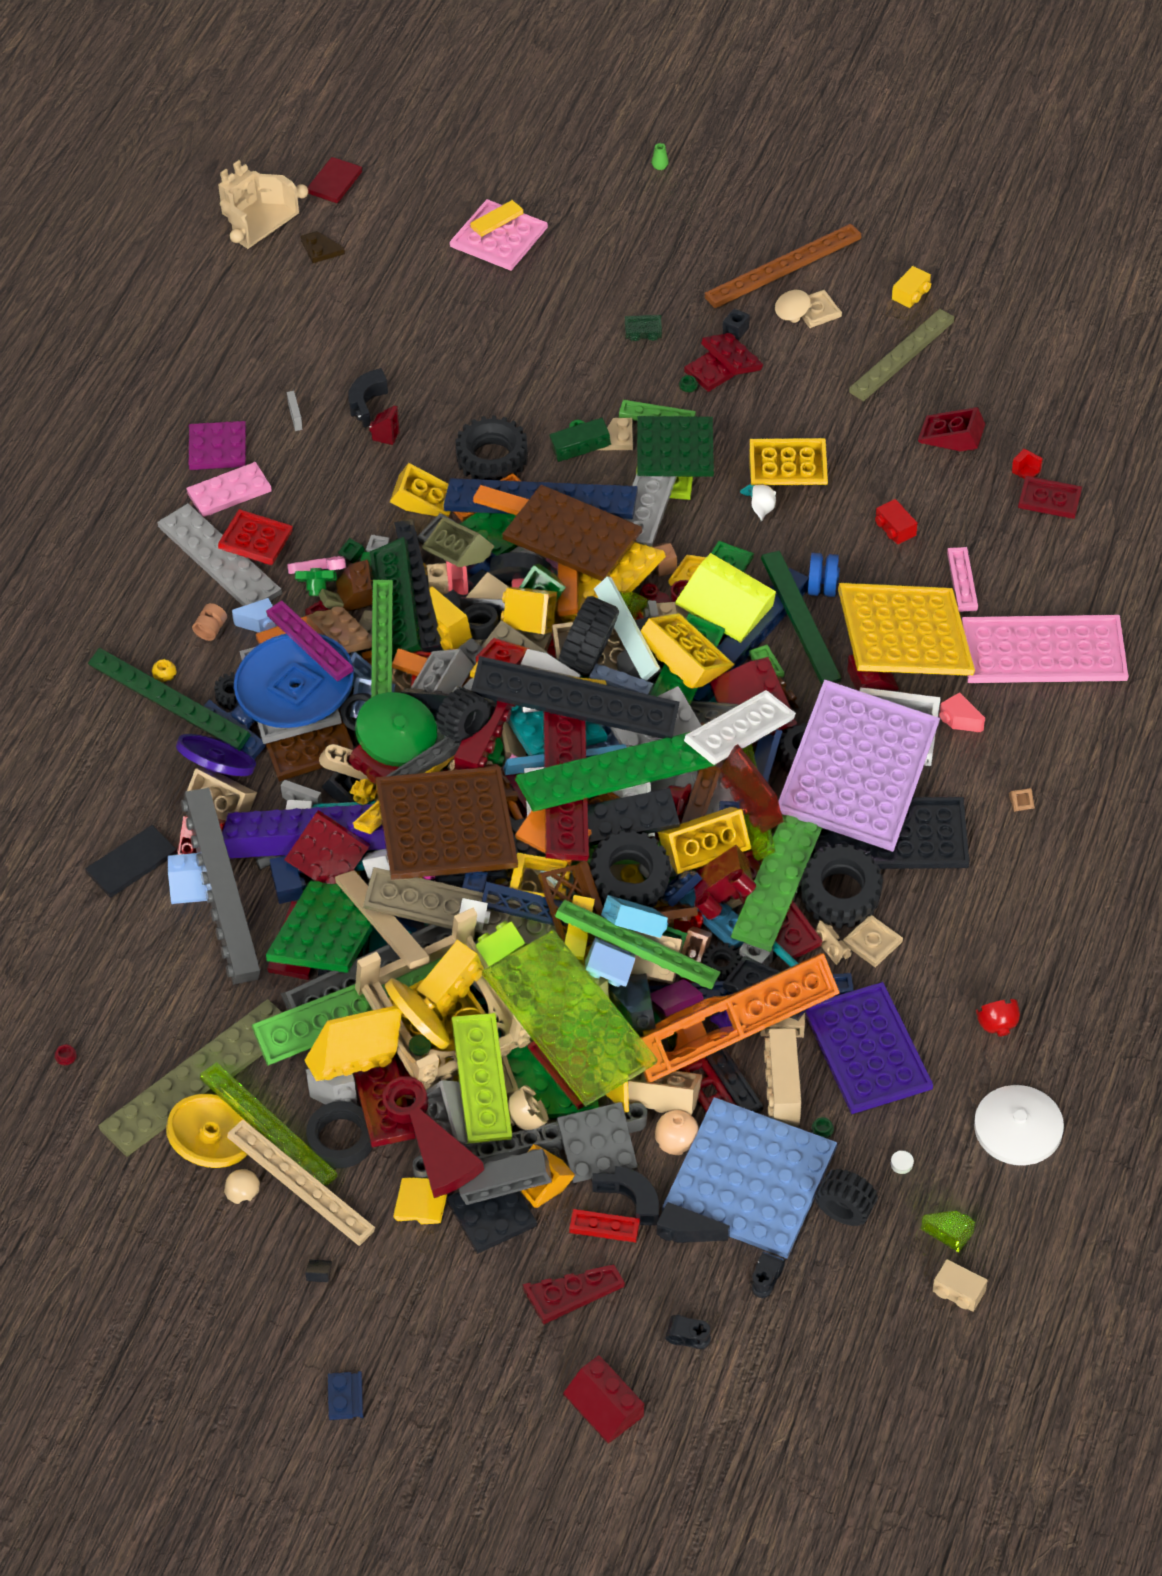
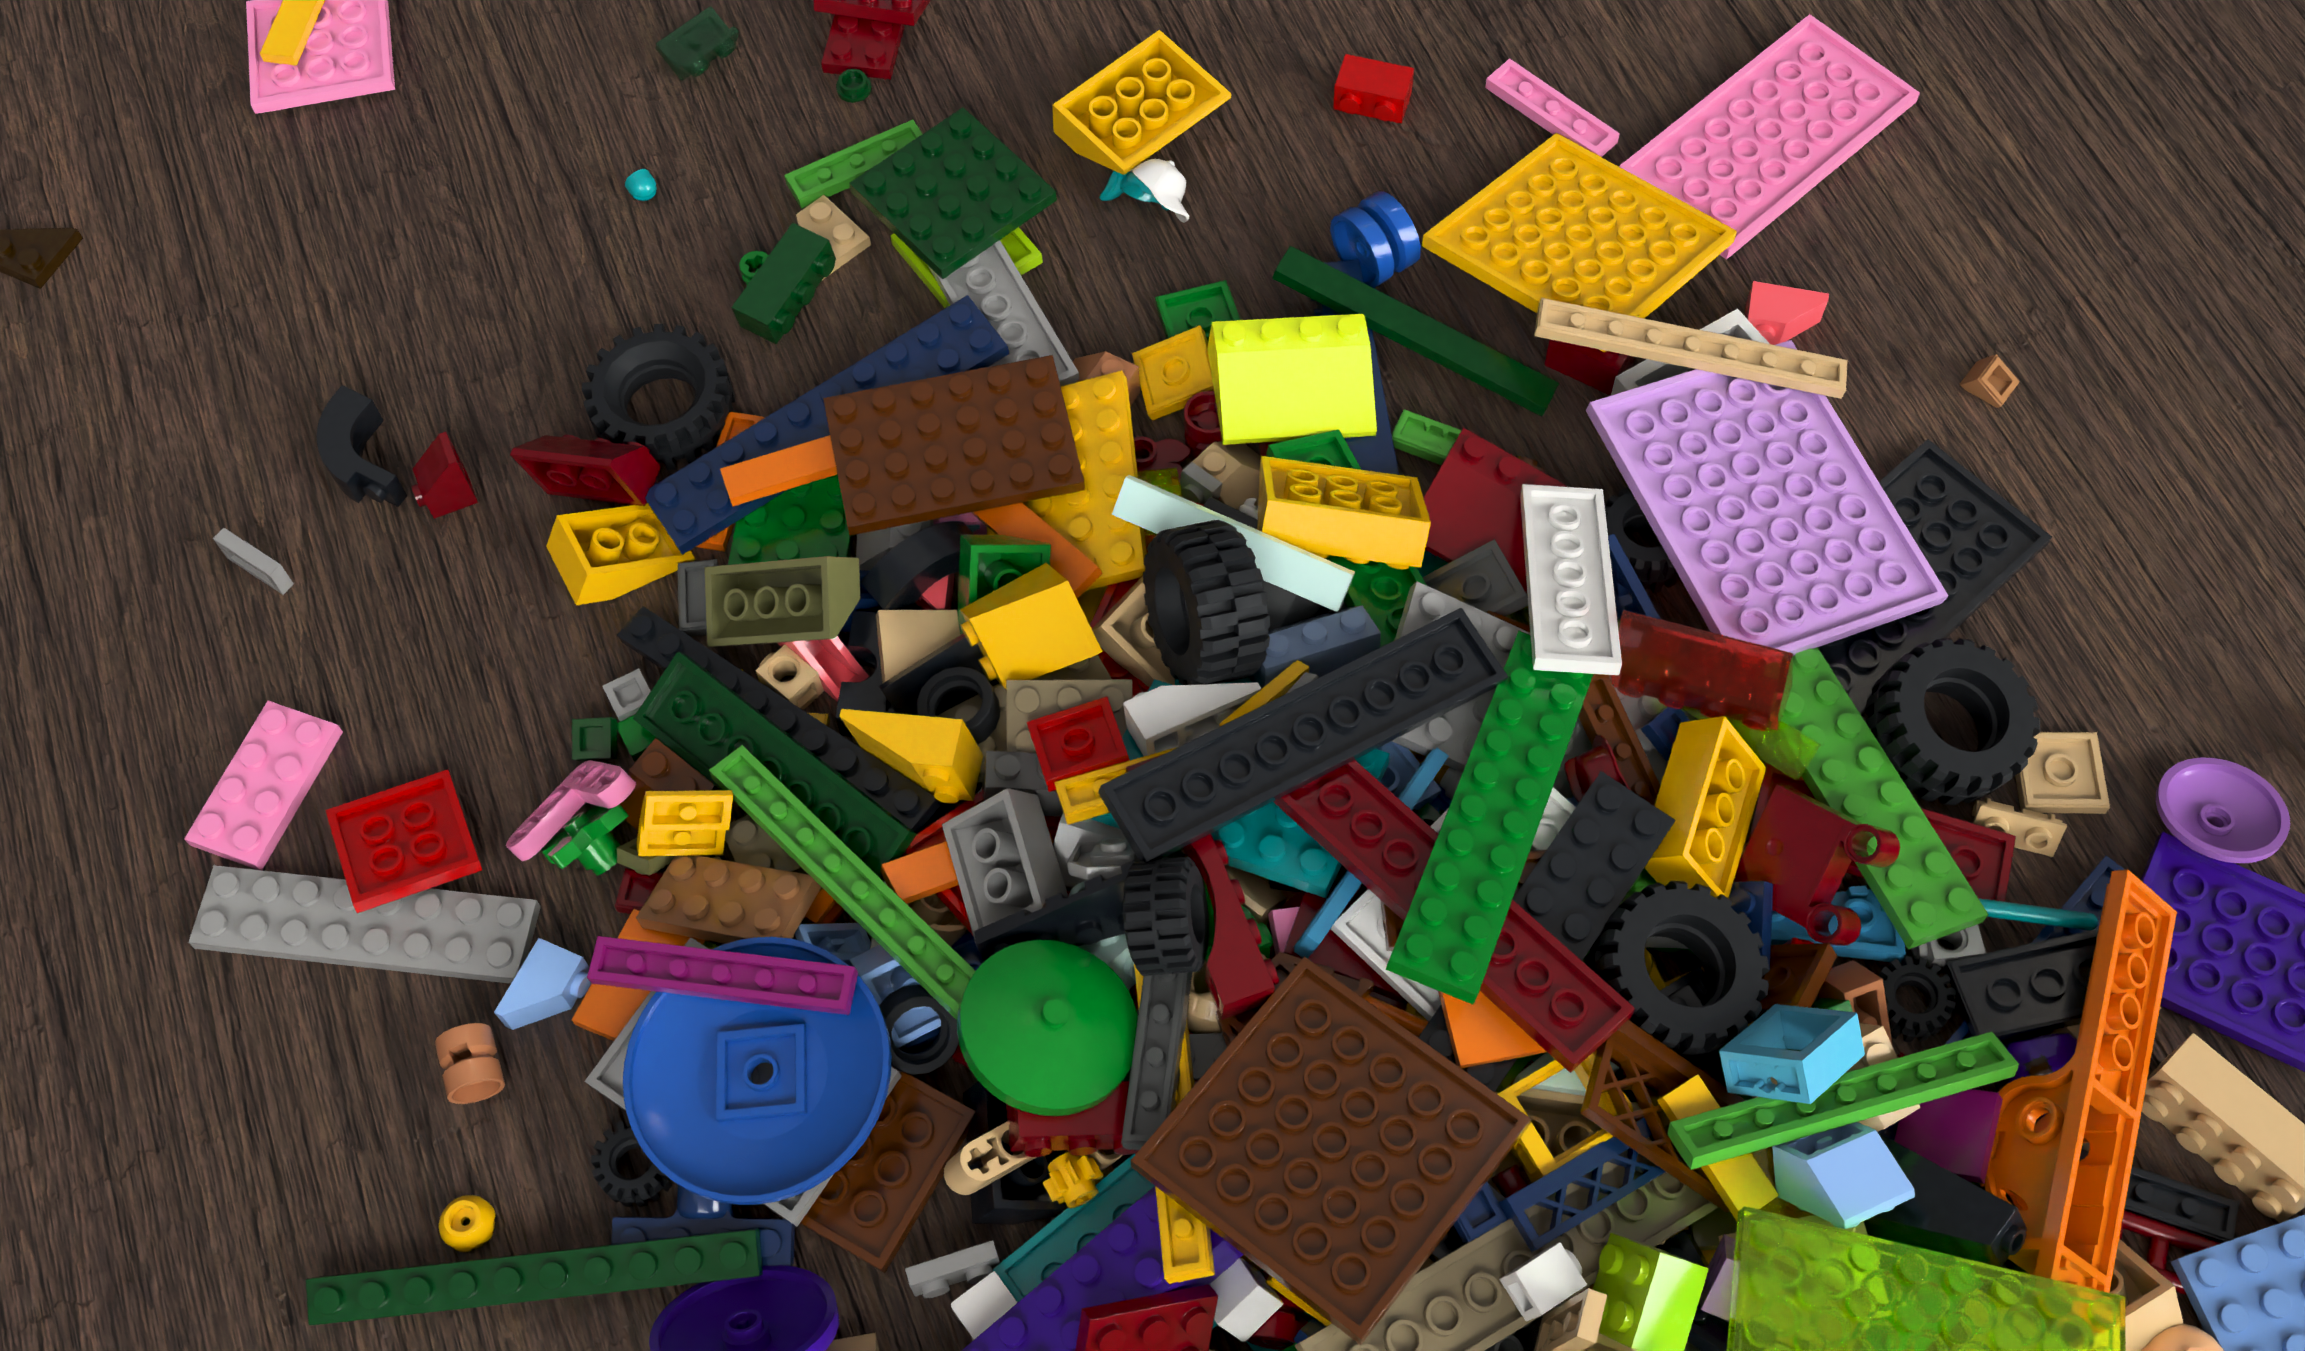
camera: 40 degrees left, 10 degrees up
(217, 445) = (167, 719): magenta plate -> none
(349, 592) = (684, 823): none -> yellow slope
(439, 456) = (589, 468): none -> dark red slope
(566, 368) = (641, 185): none -> teal hinge
(890, 690) = (1691, 348): none -> tan tile
(911, 988) = (2222, 810): none -> medium lavender dish

